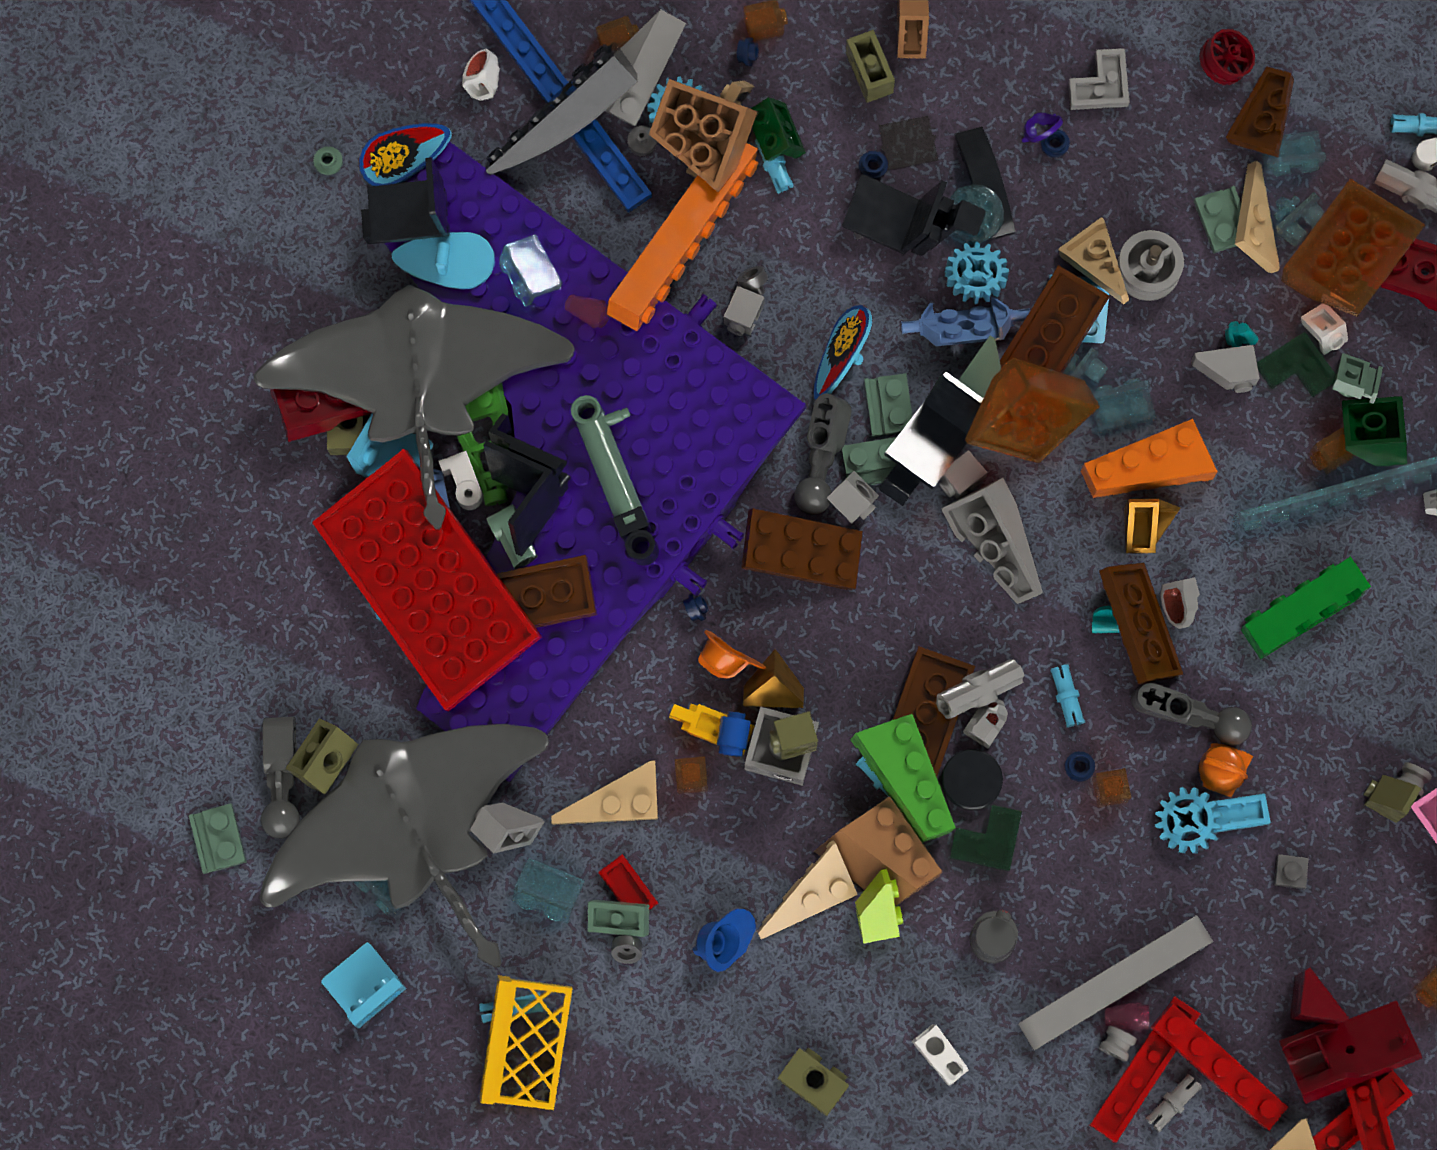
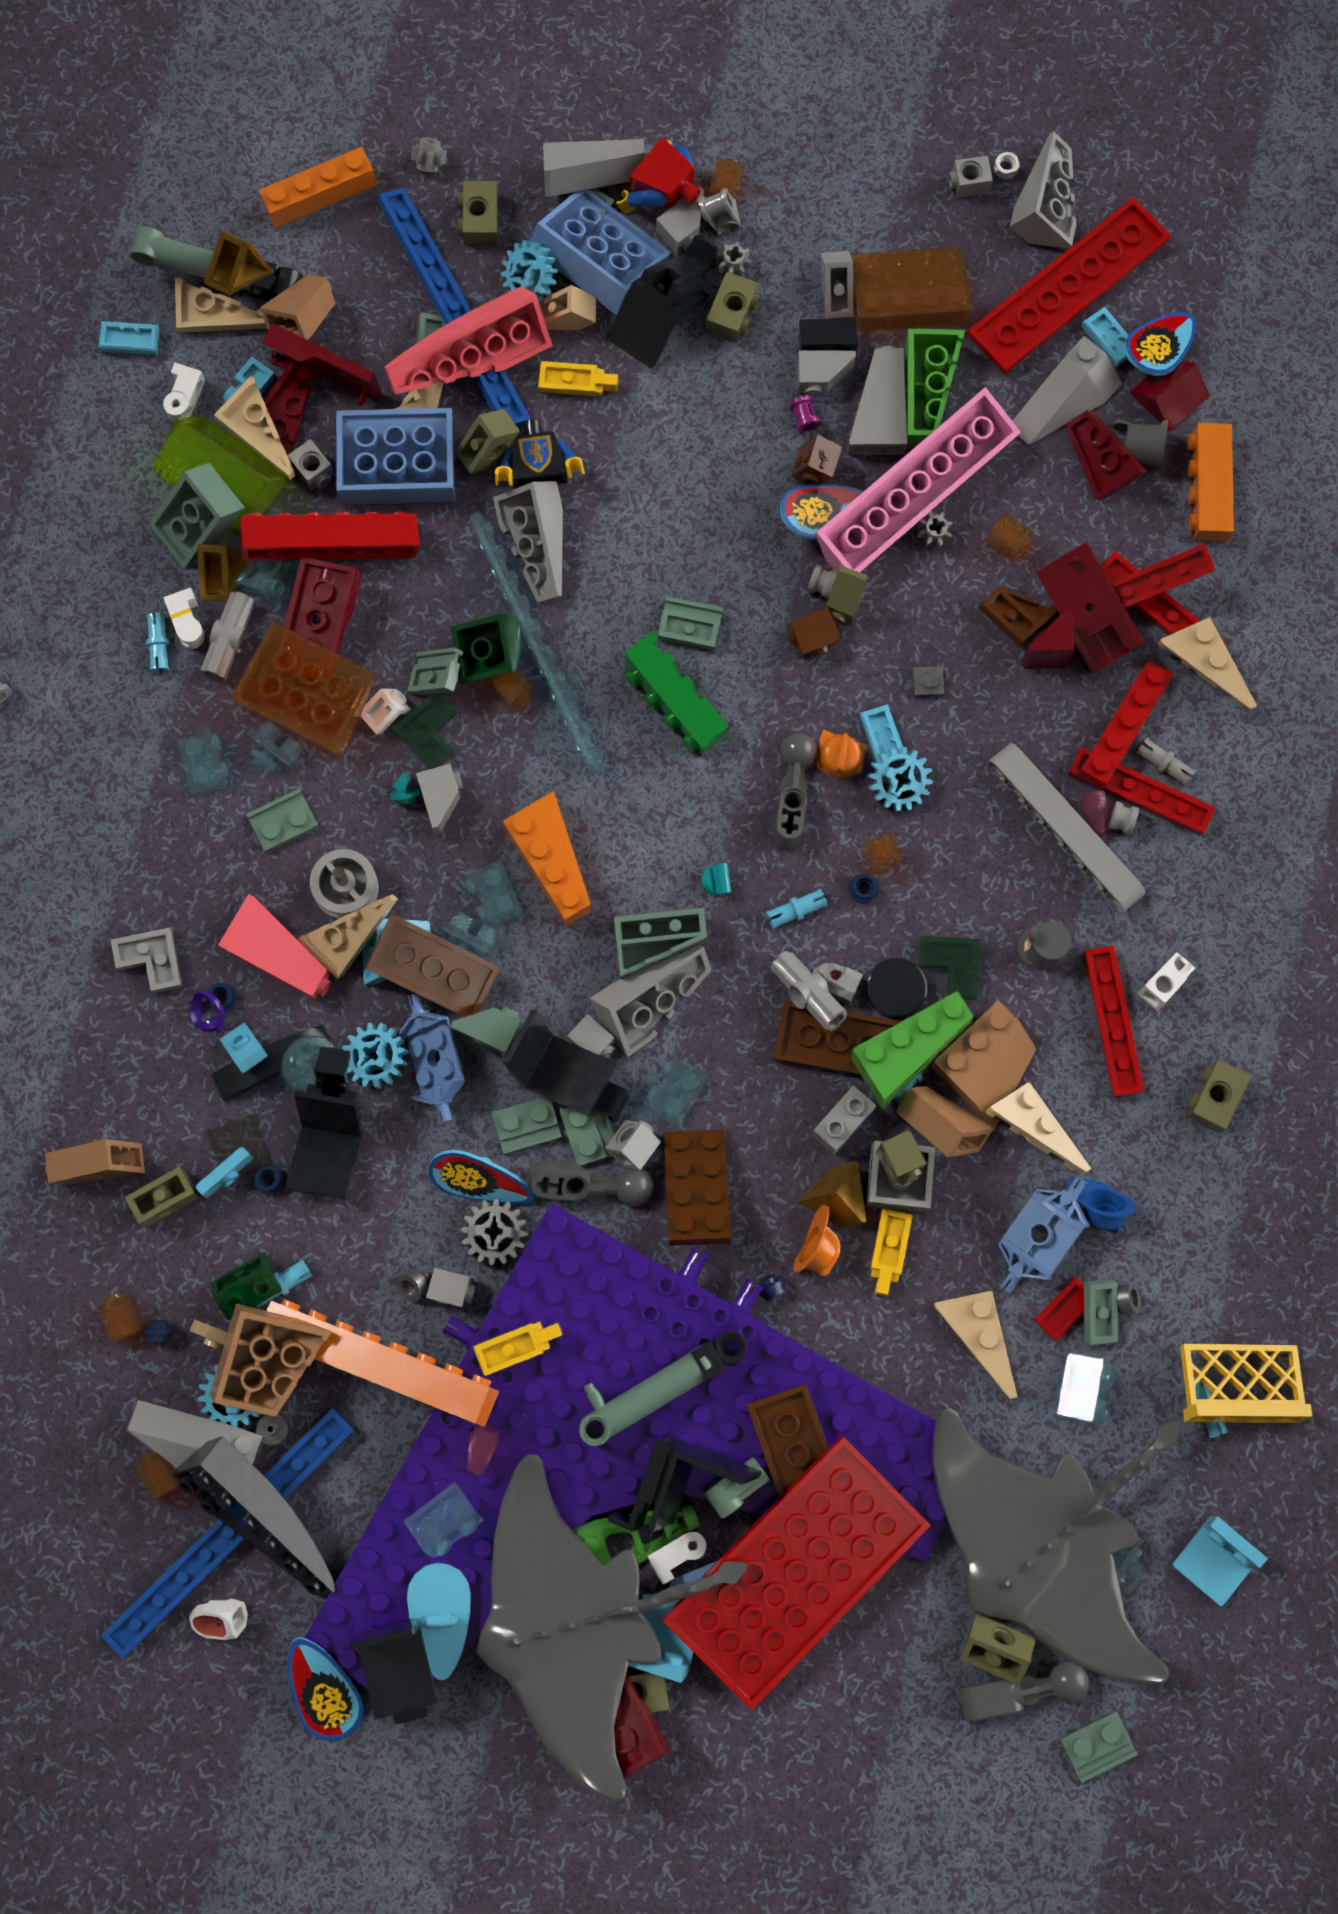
camera: 105 degrees left, 0 degrees up
(329, 168) = (347, 1768): sand green plate -> none
(505, 827) = (1036, 1442): light grey slope -> none
(675, 351) = (515, 1346): none -> yellow hinge
(691, 775) = (944, 1262): clear orange brick -> none
(712, 893) = (1064, 1223): none -> medium blue plate
(733, 734) = (899, 1225): blue brick -> none
(800, 362) = (479, 1231): none -> light grey gear
(827, 798) = (943, 1122): none -> medium nougat slope
(846, 702) = (843, 1120): none -> light grey hinge
(877, 911) = (1045, 1057): lime slope -> none
(884, 124) = (225, 1173): none -> medium azure plate
(900, 549) = (677, 1091): none -> clear light blue bracket
(906, 991) = (1113, 1021): none -> red plate
(1001, 153) = (243, 1047): none -> medium azure plate
(1030, 411) = (525, 973): clear orange slope -> none
(1054, 549) = (656, 937): none -> sand green wedge
(1096, 191) = (270, 948): none -> coral slope
(1141, 622) = (715, 846): reddish brown plate -> none
(1146, 523) = (613, 857): pearl gold slope -> none
(1180, 601) = (684, 813): light grey rock -> none
(1228, 56) = (112, 843): dark red wheel -> none
(1255, 227) = (289, 787): tan wing -> none
(1264, 114) = (166, 792): reddish brown wing -> none
(1354, 976) = (1016, 614): none -> reddish brown wing
(1356, 760) = (813, 633): none -> reddish brown head
(1382, 639) = (690, 623): none -> sand green plate

